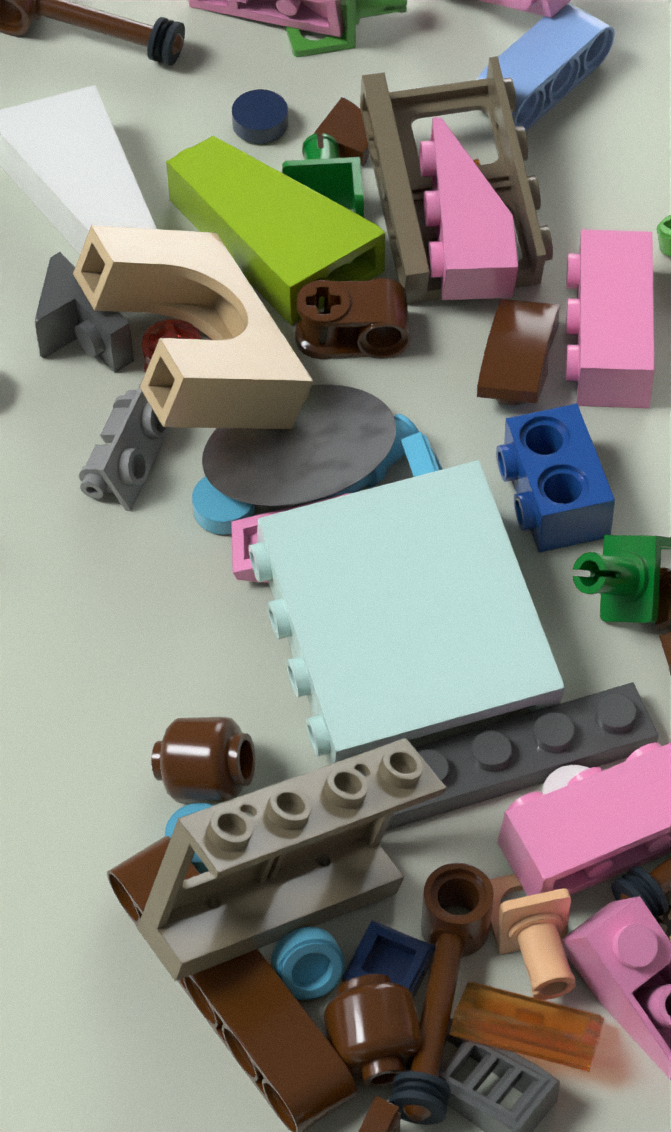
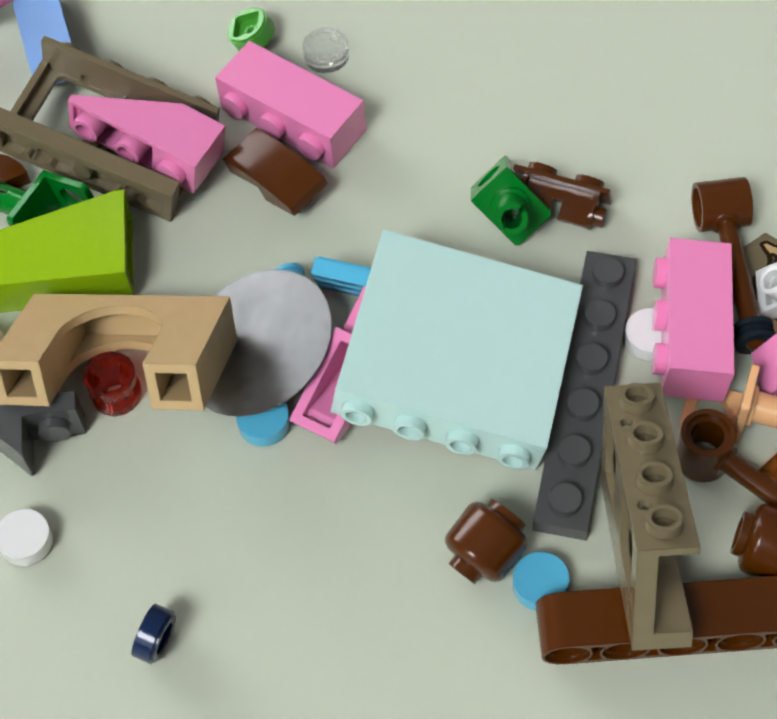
camera: 55 degrees left, 5 degrees up
(126, 462) = (183, 465): light grey hinge -> none
(308, 962) = (699, 566): medium azure tile -> none
(359, 319) = (172, 252): reddish brown piece -> none
(391, 954) = (716, 513): dark blue tile -> none
(552, 464) = (397, 197): blue brick -> none

